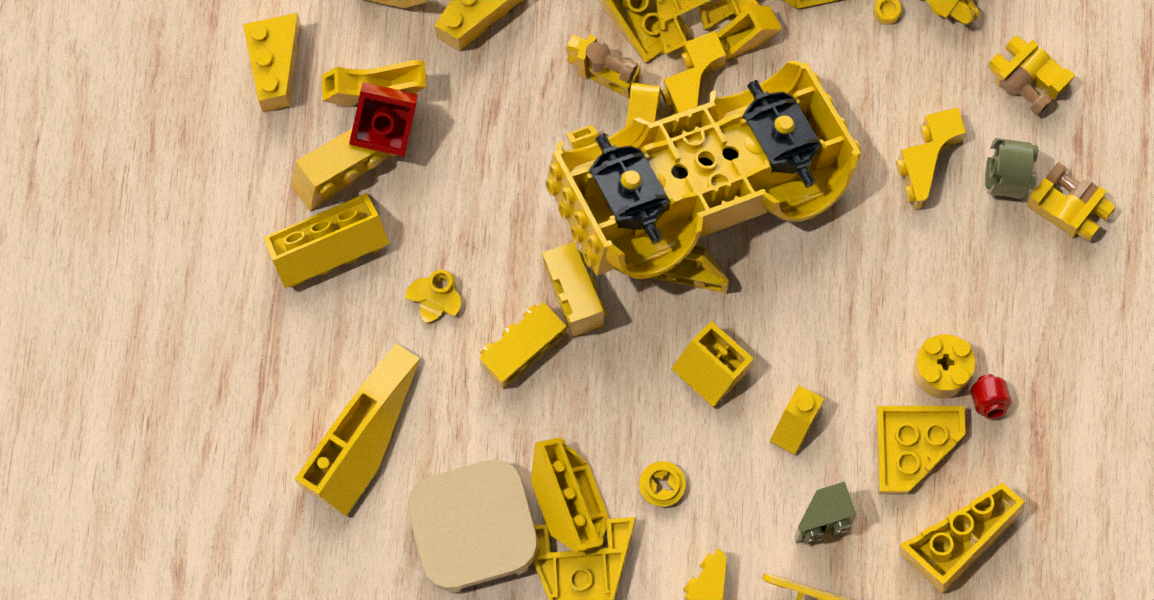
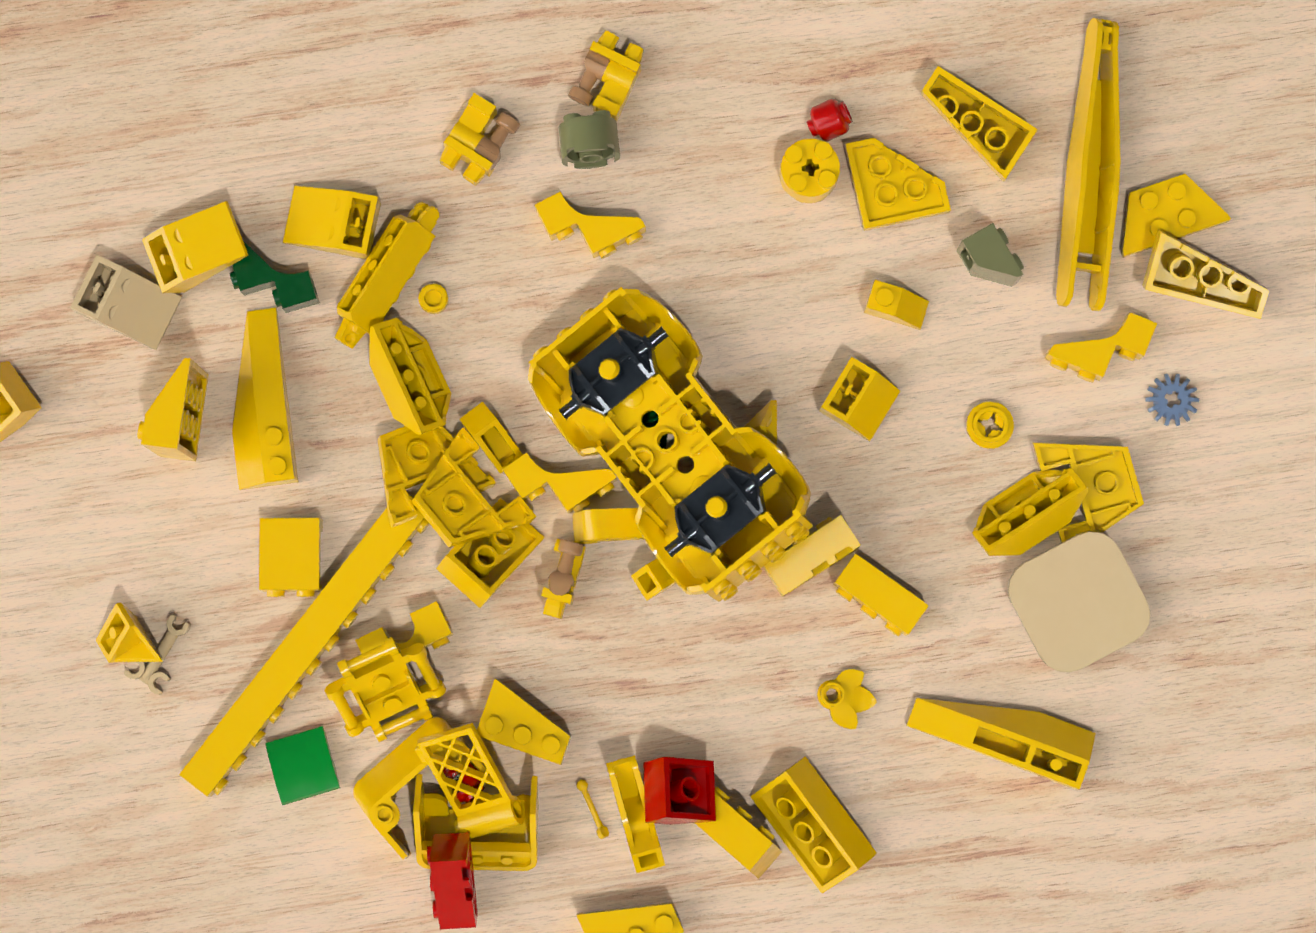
camera: 105 degrees left, 10 degrees up
(367, 58) = (602, 831): none -> yellow hinge

